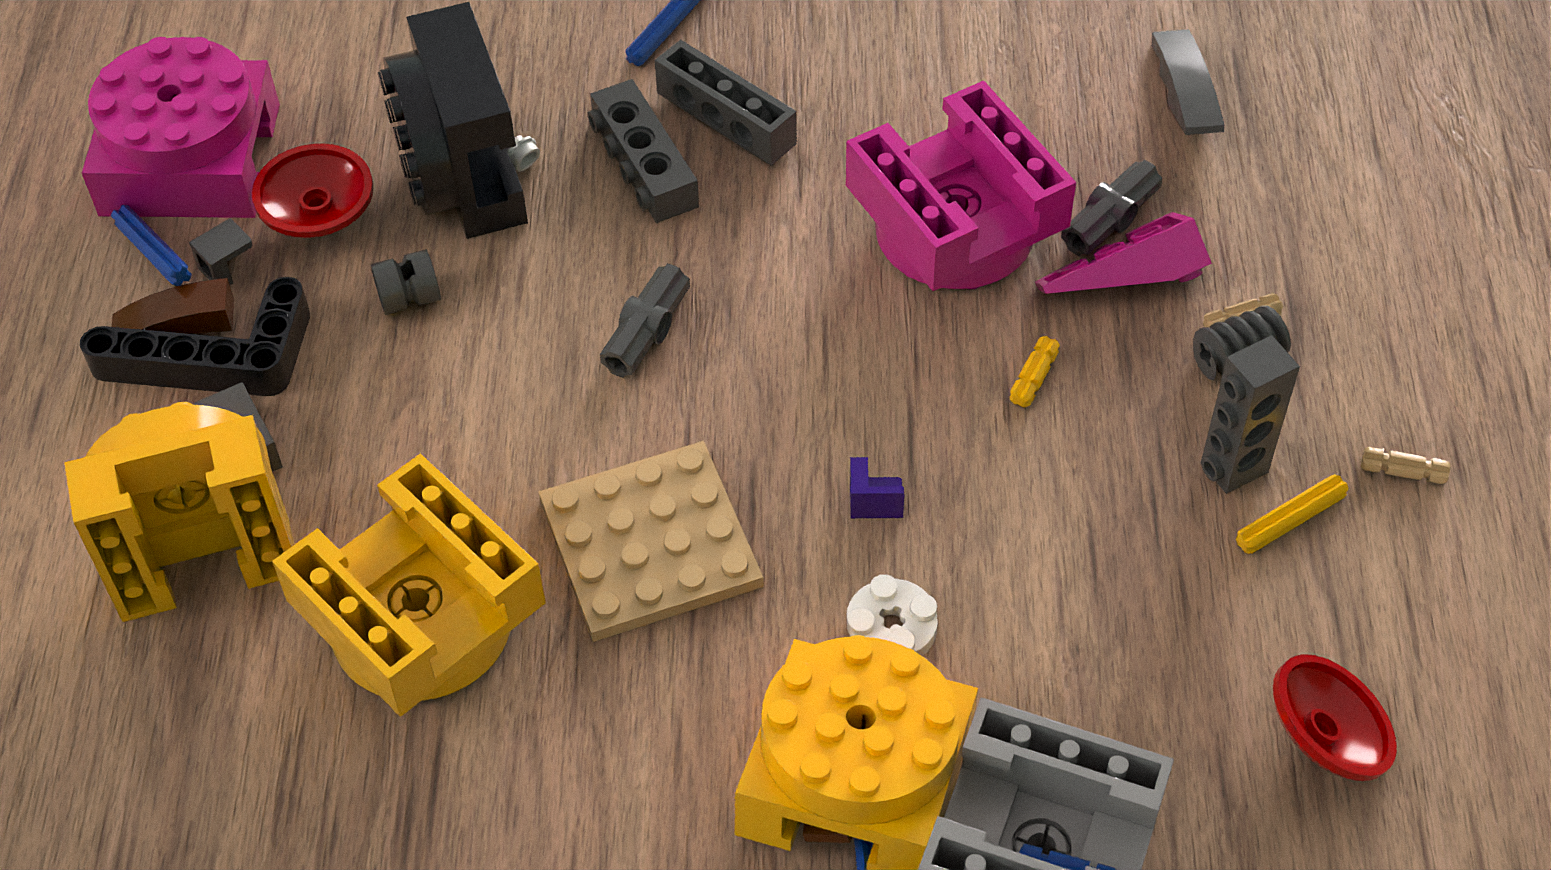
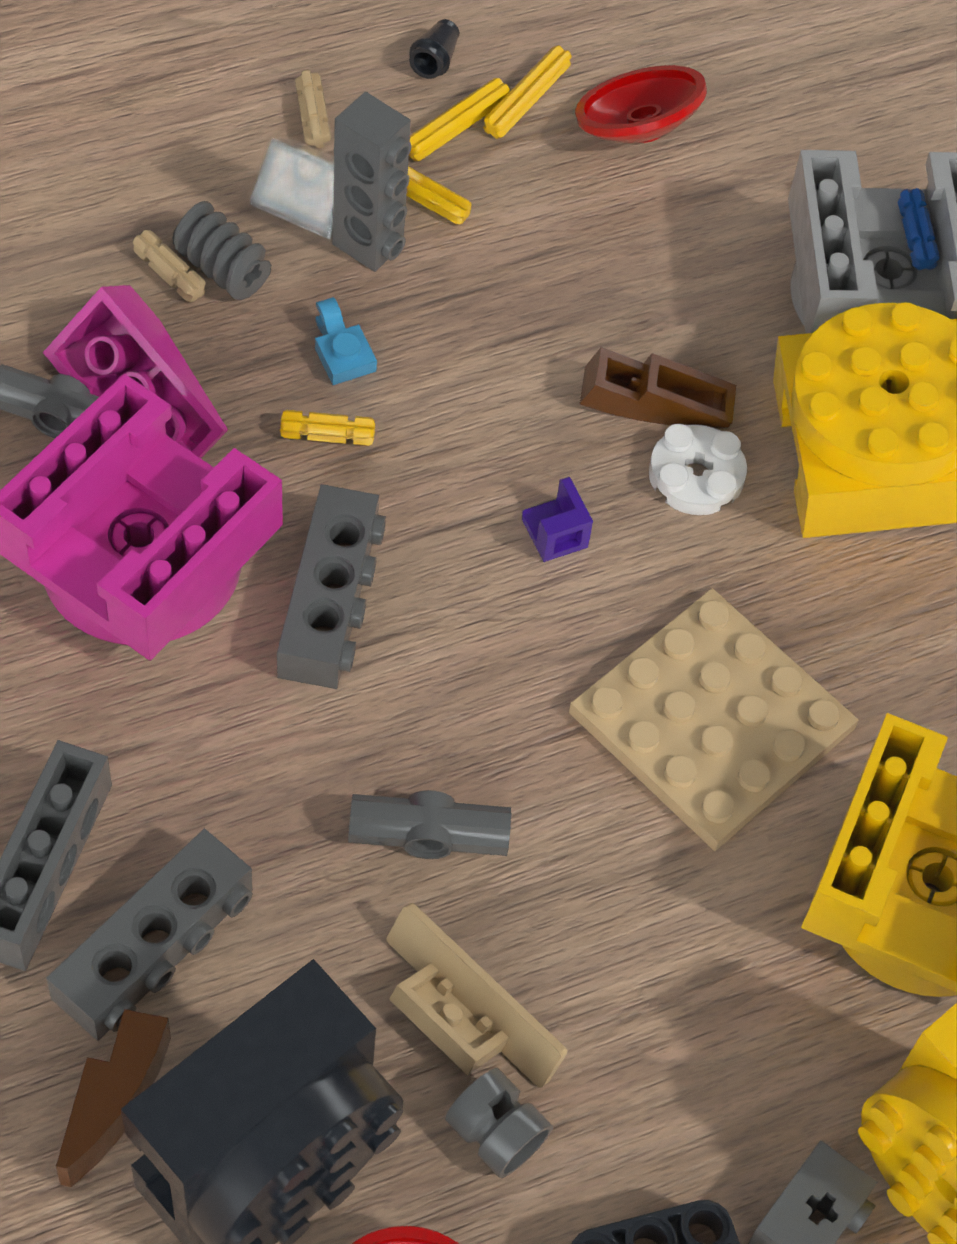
camera: 120 degrees left, 5 degrees up
(498, 288) = (464, 1005): none -> tan bracket
(547, 106) = (107, 1088): none -> reddish brown slope
(877, 320) = (316, 655): none -> dark grey brick
(981, 614) = (656, 391): none -> reddish brown slope
(1115, 408) = (341, 349): none -> dark azure plate
(1320, 437) = (297, 185): none -> clear slope
(1367, 577) = (457, 119): none -> yellow axle
(1392, 649) = (527, 92): none -> yellow axle
(1463, 583) = (434, 50): none -> black cone

